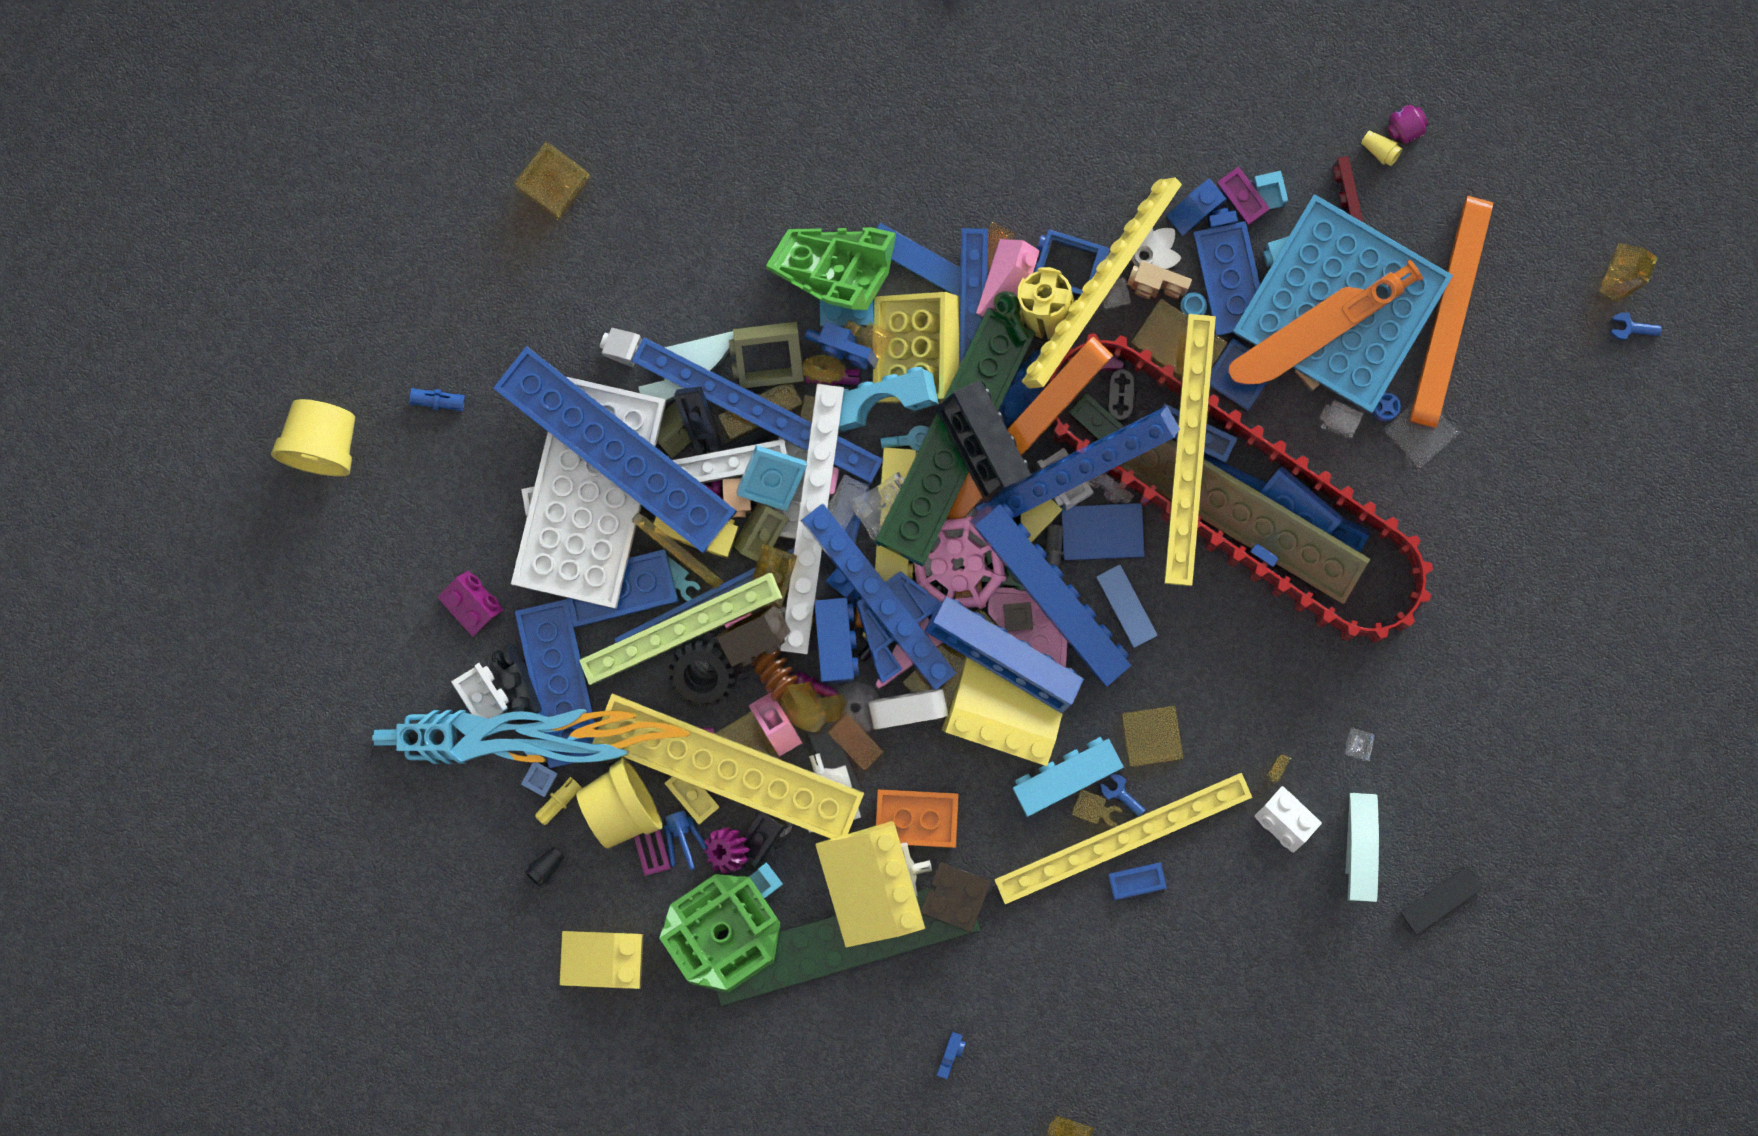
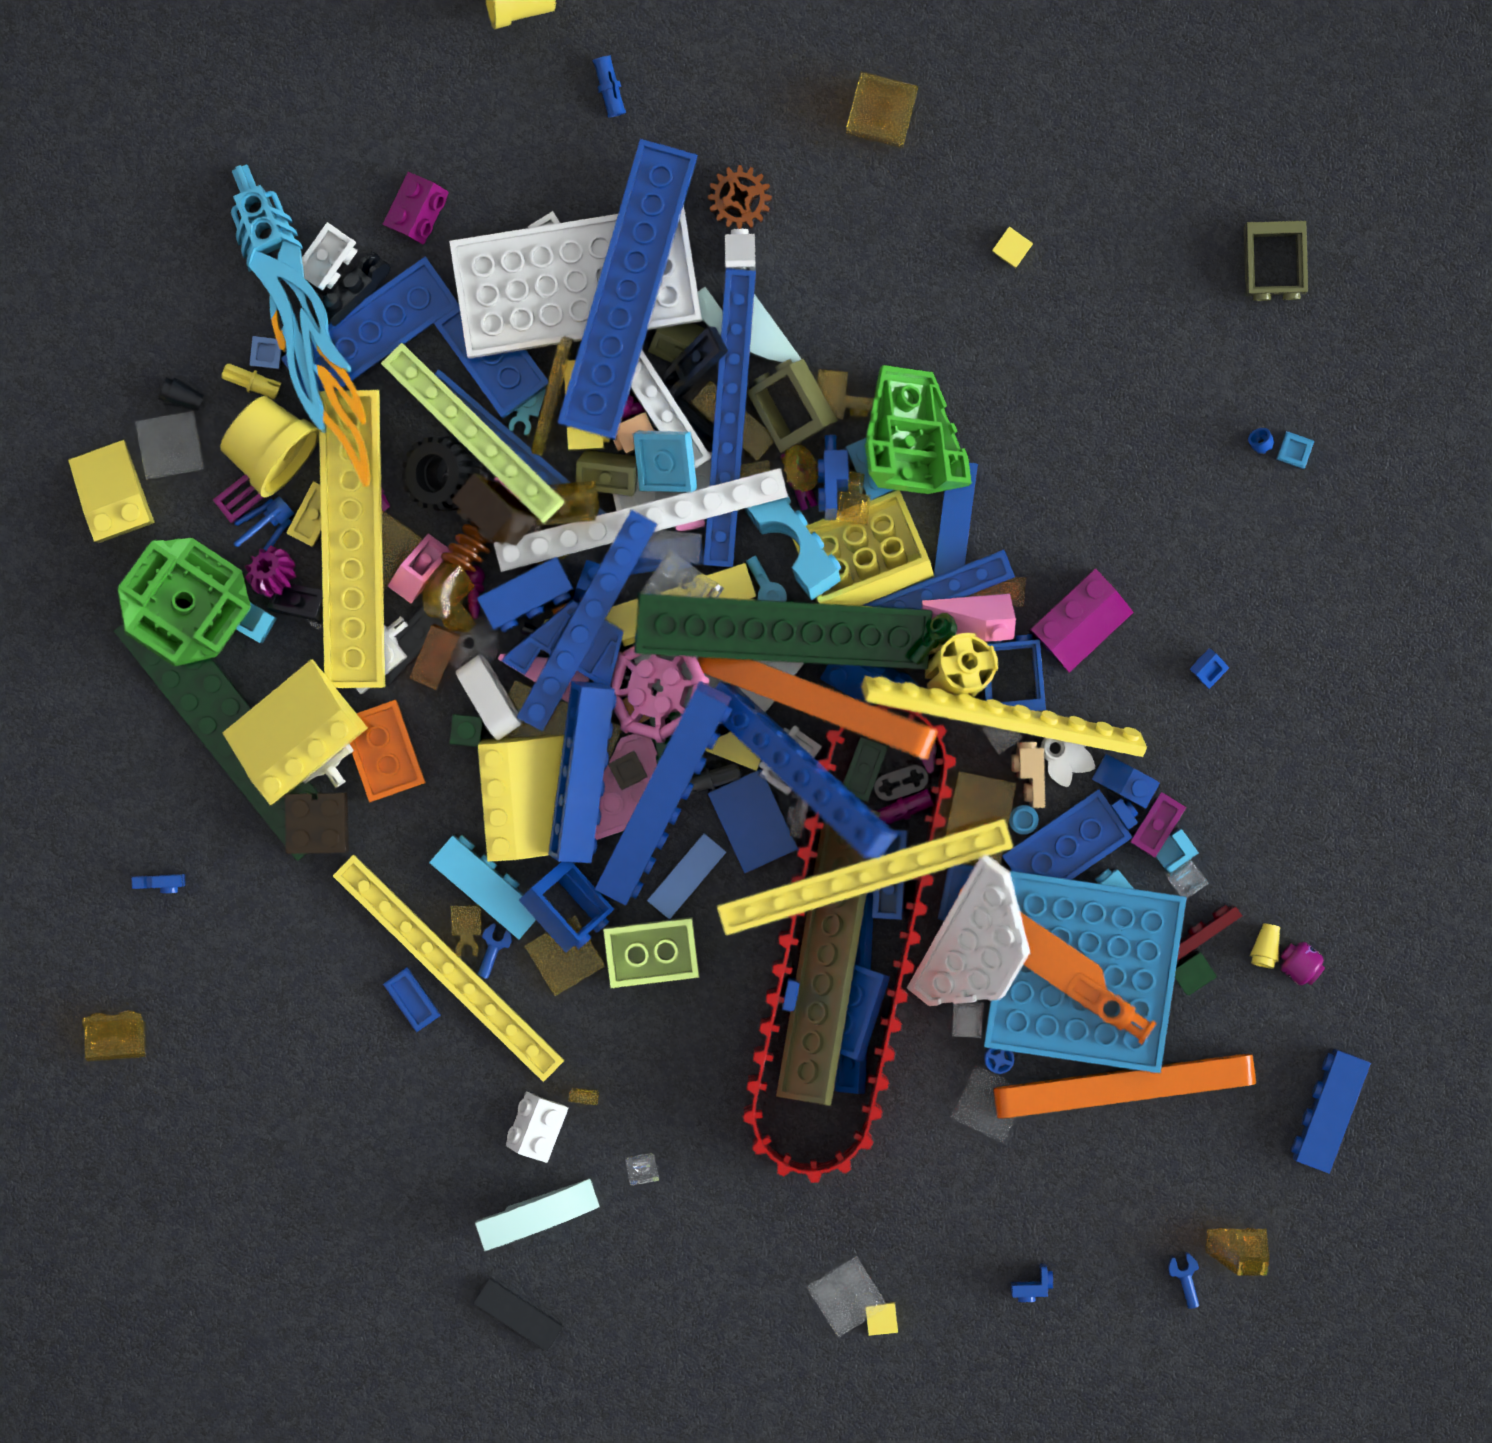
camera: 70 degrees right, 5 degrees up
(562, 328) = (752, 193): none -> dark orange gear
(583, 893) = (170, 445): none -> clear tile
(711, 121) = (1012, 247): none -> light yellow tile
(768, 314) = (834, 386): none -> clear yellow brick
(928, 739) = (466, 730): none -> dark green brick
(983, 441) = (787, 662): black slope -> none
(1045, 189) = (1081, 620): none -> magenta slope
(1104, 699) = (581, 891): none -> blue window
(1129, 100) = (1209, 668): none -> blue plate
(1143, 395) = (905, 807): none -> magenta pin
(1179, 660) = (651, 952): none -> yellowish green brick
(1284, 381) = (977, 944): none -> white plate
(1298, 190) = (1187, 879): none -> clear plate
(1379, 215) = (1193, 973): none -> dark green panel
(1536, 616) = (847, 1296): none -> clear plate
(1540, 150) = (1331, 1110): none -> blue brick
(1566, 595) = (884, 1321): none -> light yellow tile
(1592, 462) = (1028, 1290): none -> blue bracket

